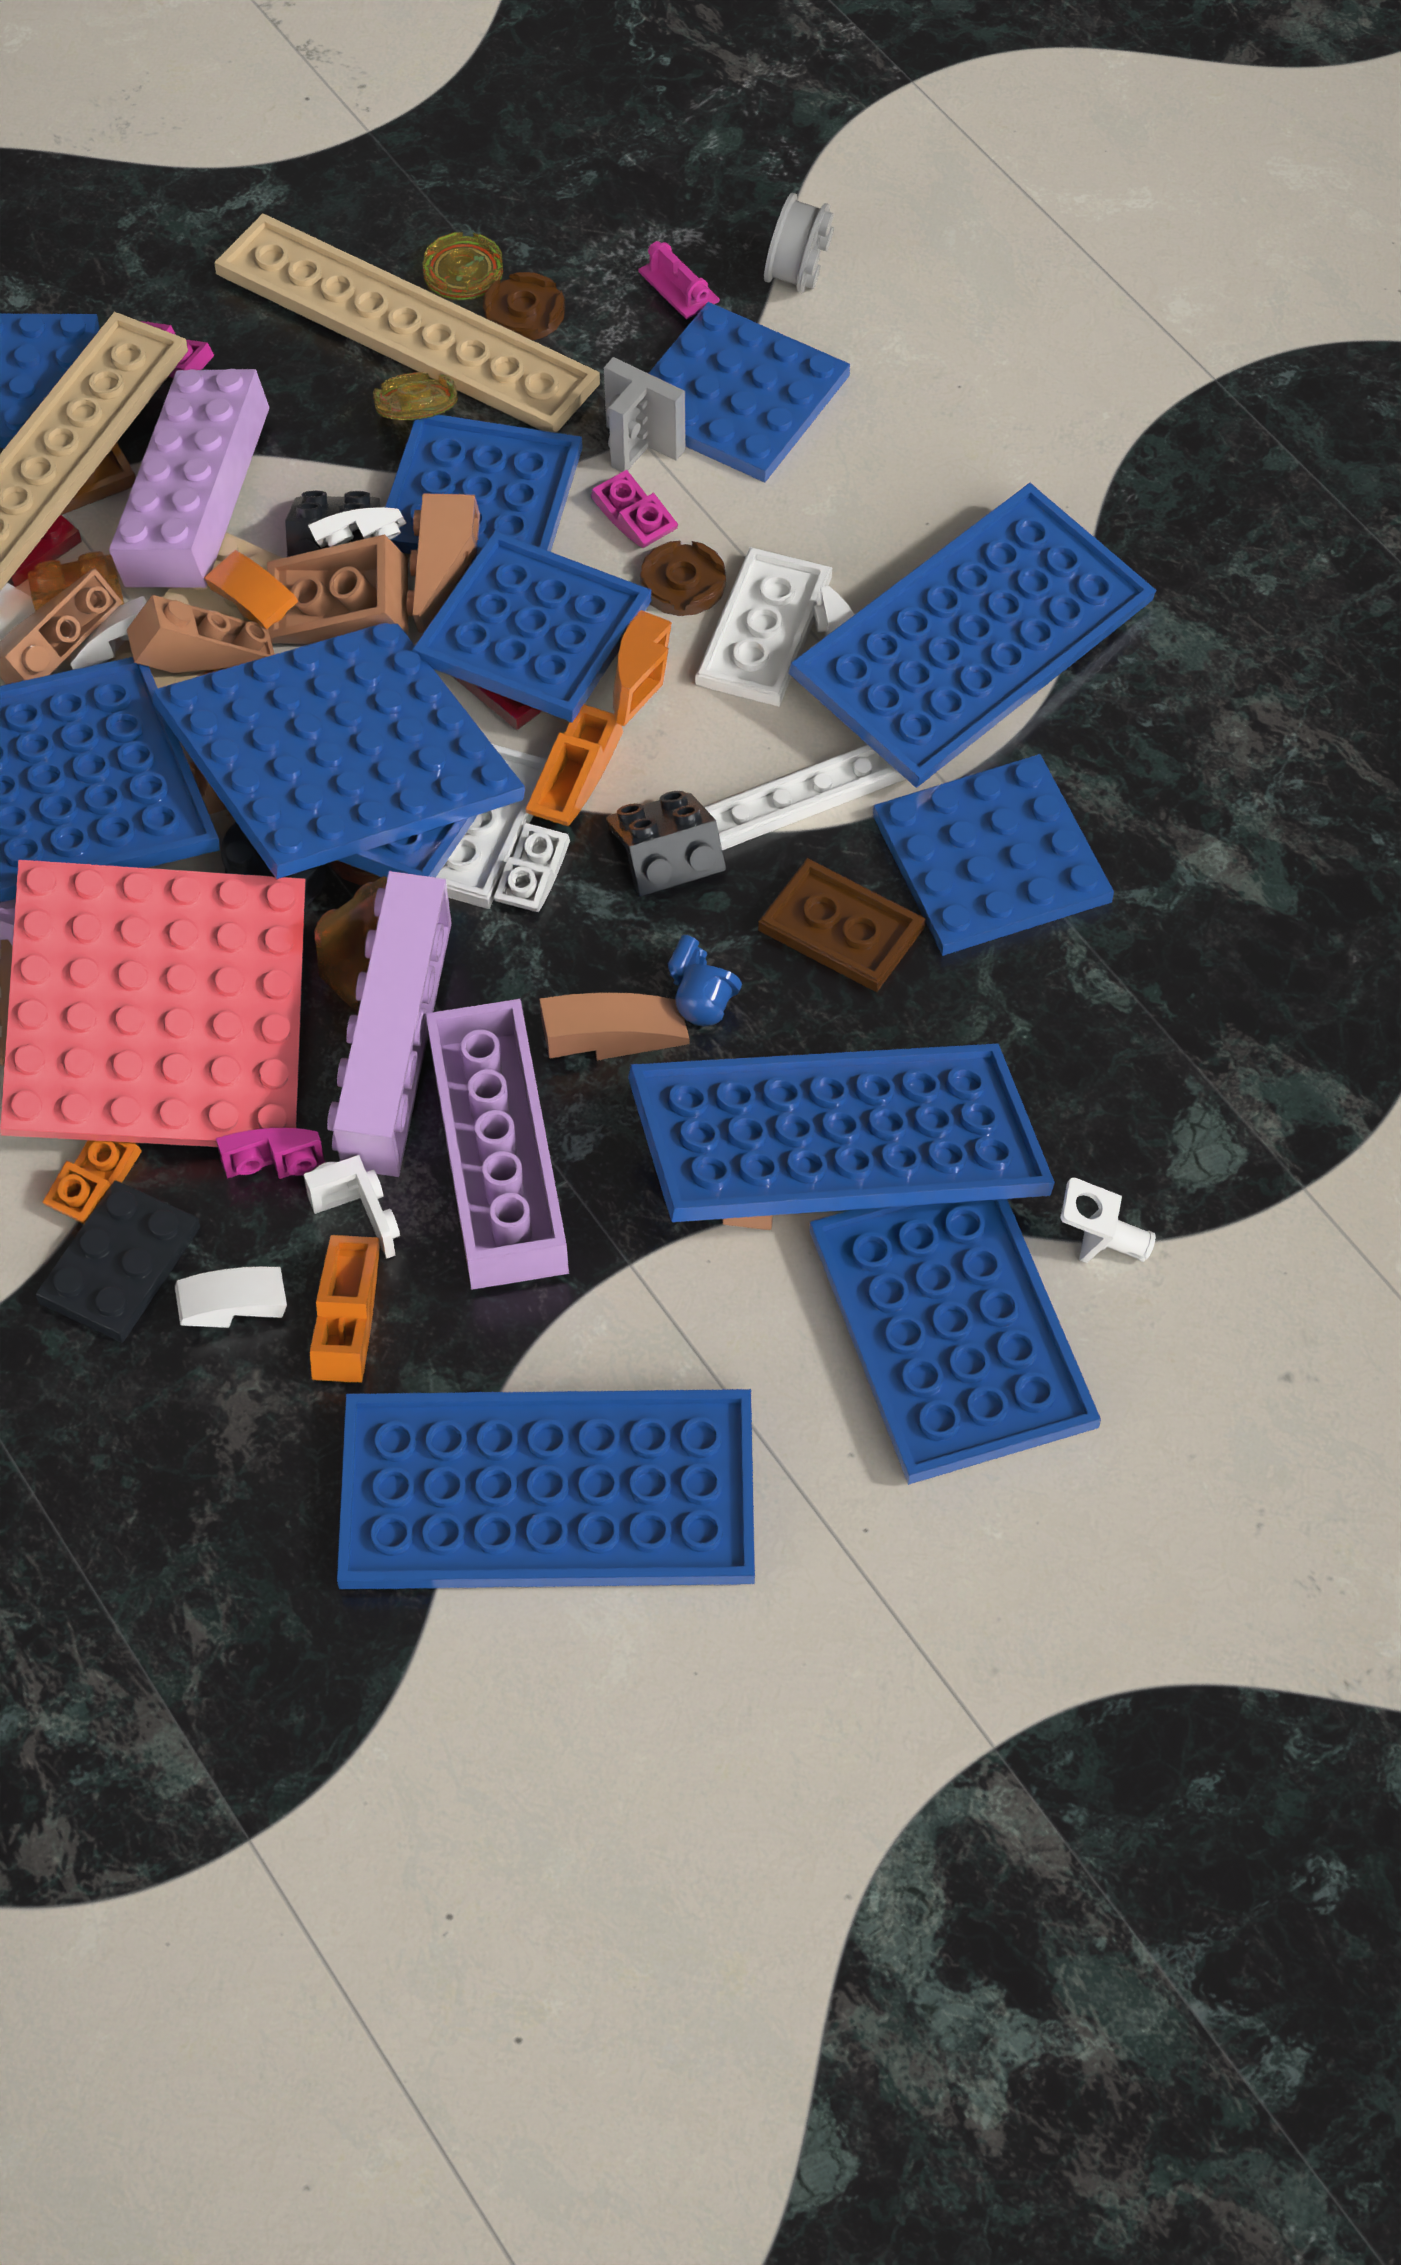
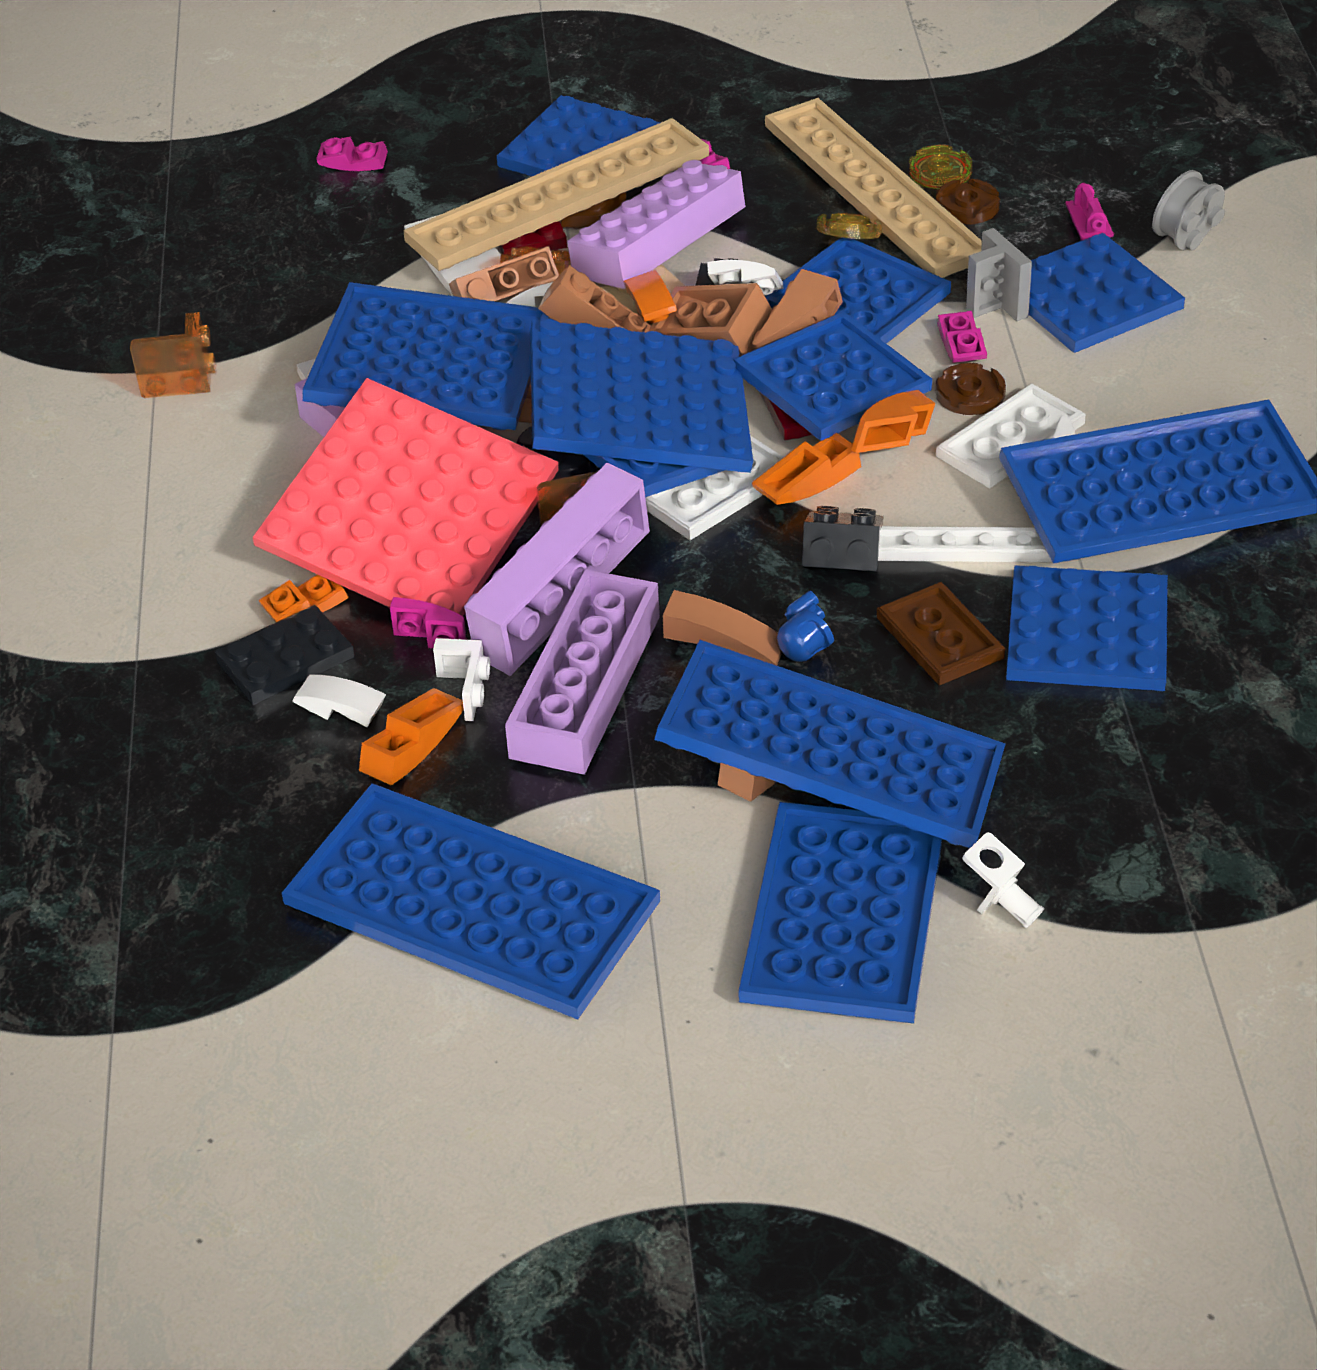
camera: 30 degrees right, 15 degrees down
(533, 868) = (738, 524): white slope -> none

